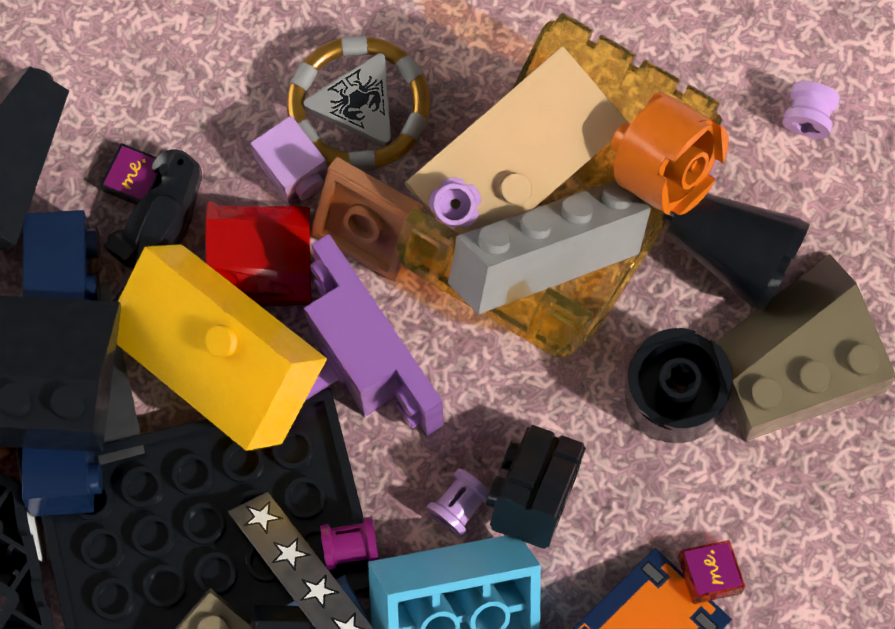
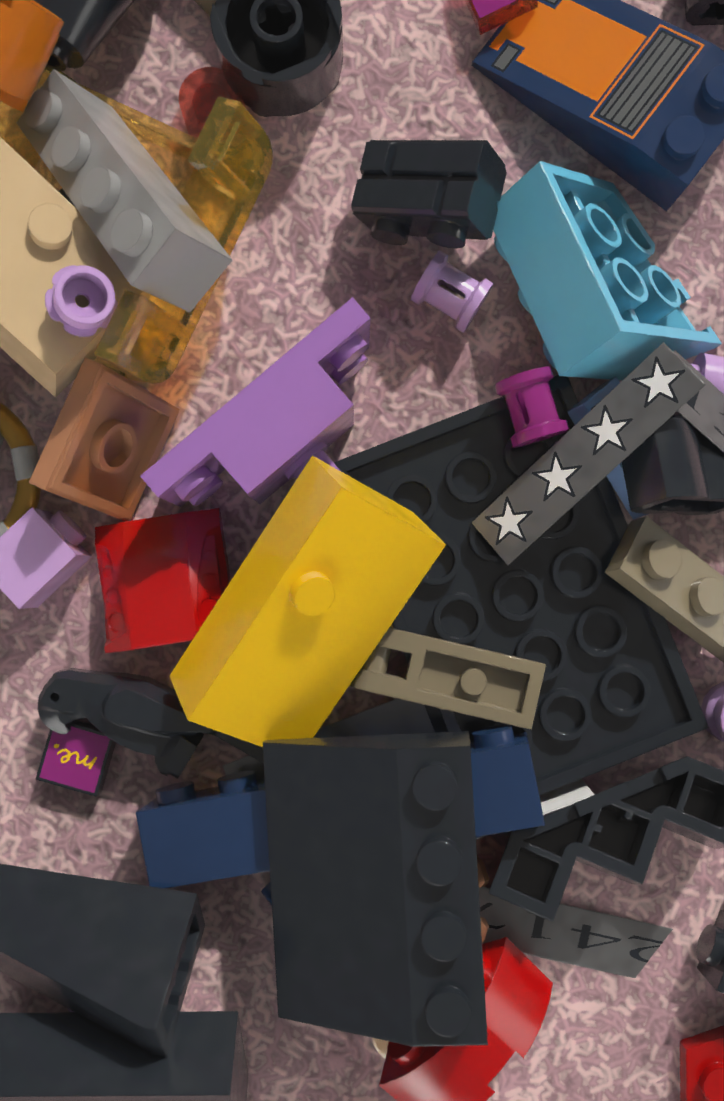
camera: 105 degrees left, 15 degrees up
(146, 457) = (455, 678): none -> dark tan plate
(633, 328) = (199, 95): none -> clear red tile

